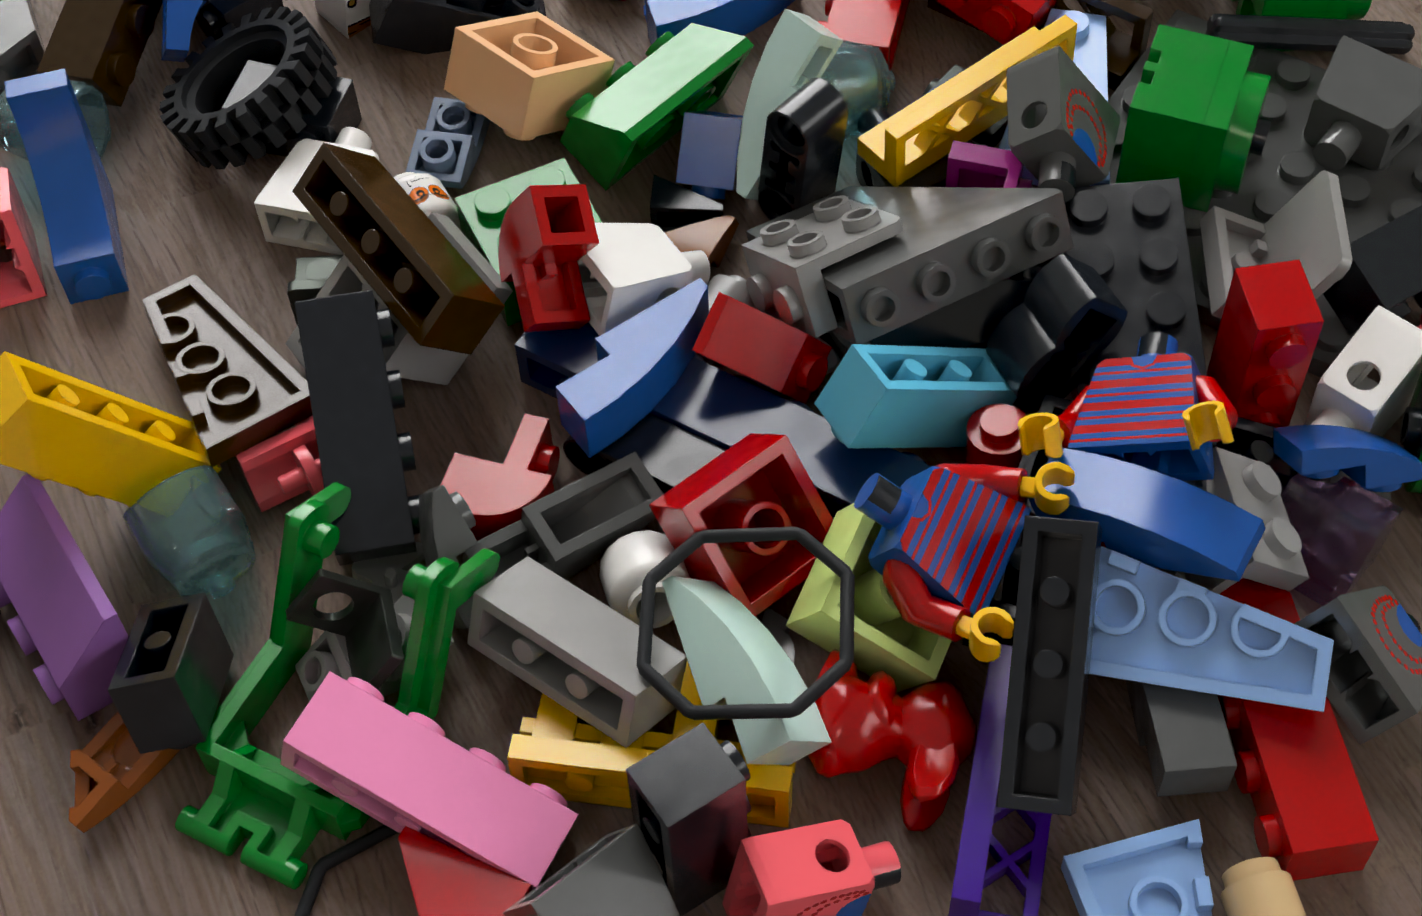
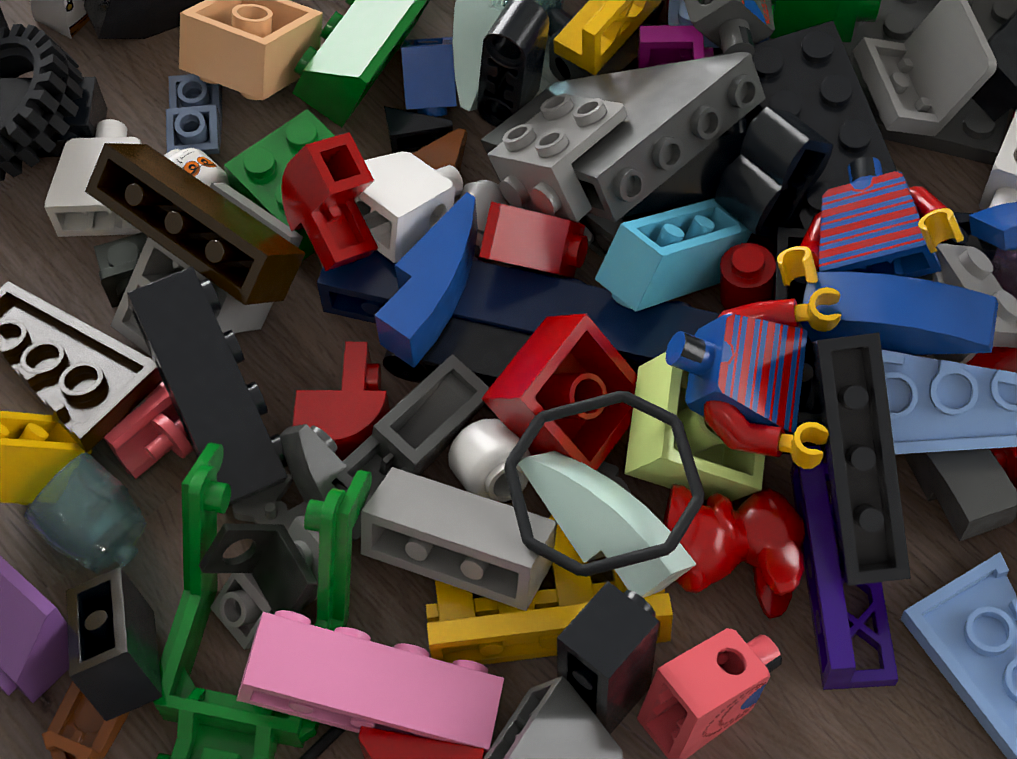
camera: 15 degrees left, 5 degrees up
(1266, 341) = (946, 140): red brick -> none

